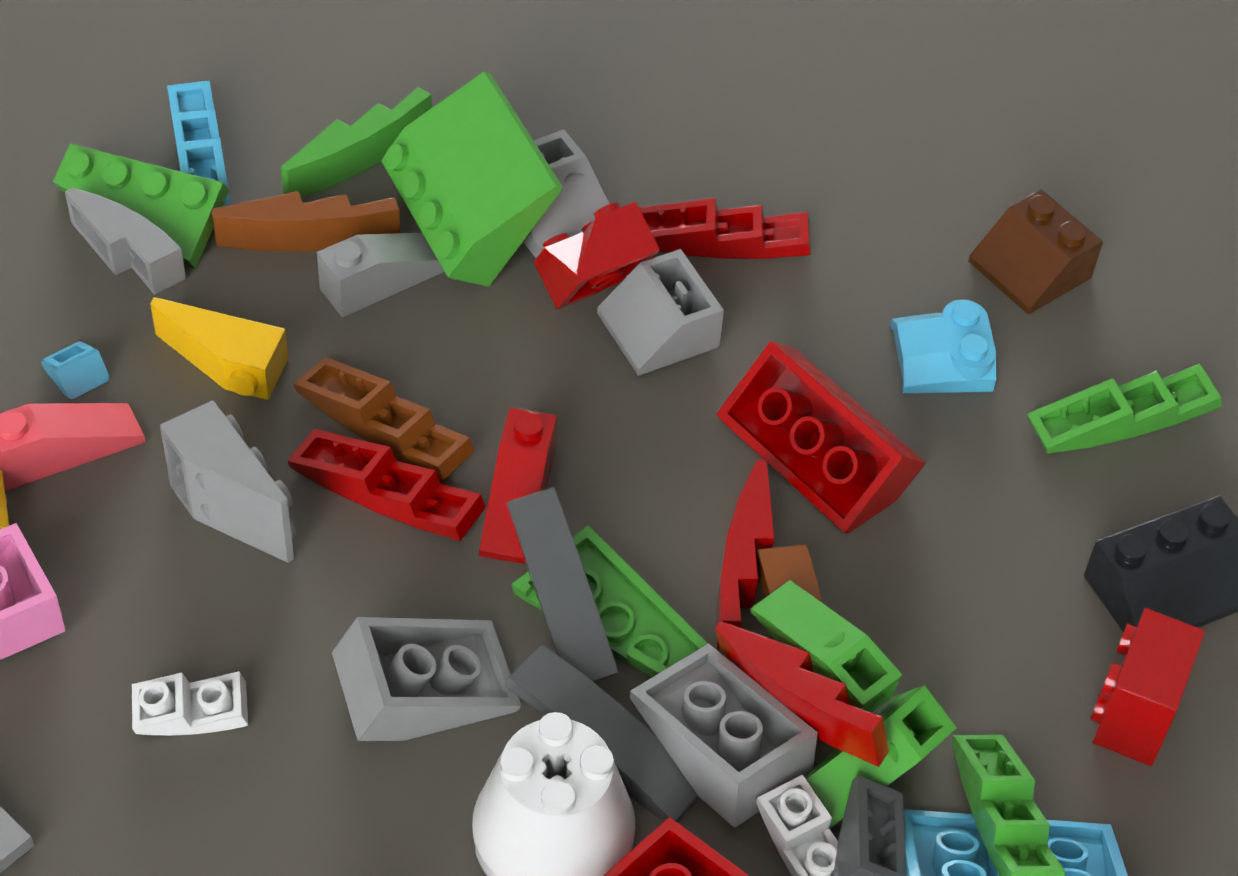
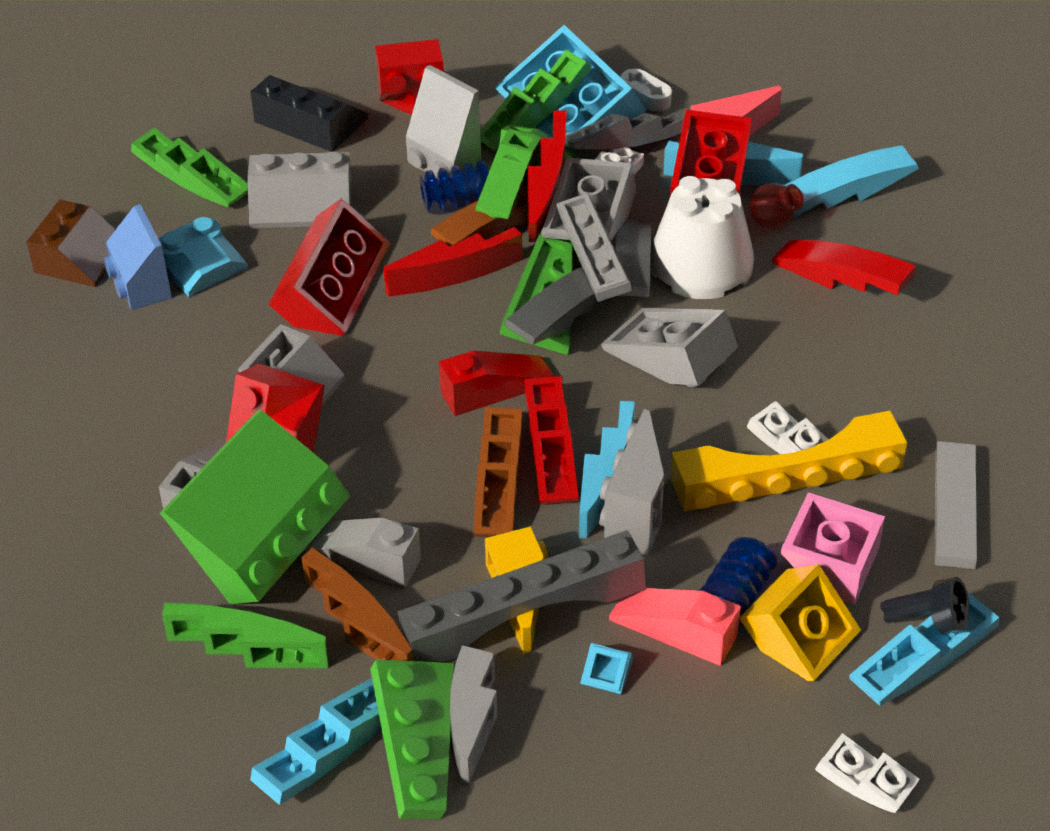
camera: 120 degrees left, 5 degrees down
(48, 507) = (741, 572): none -> clear blue piece
(89, 754) = (718, 477): none -> yellow arch
(161, 365) = (594, 571): none -> dark grey arch
(312, 512) = (599, 466): none -> medium azure slope
(620, 655) = (593, 247): none -> light grey tile
(727, 233) = (173, 398): red slope -> none
(892, 615) = (453, 186): none -> clear blue piece
(946, 274) = (137, 261): none -> medium blue slope
(983, 651) = (444, 124): none -> slope
(997, 482) = (296, 187): none -> light grey slope

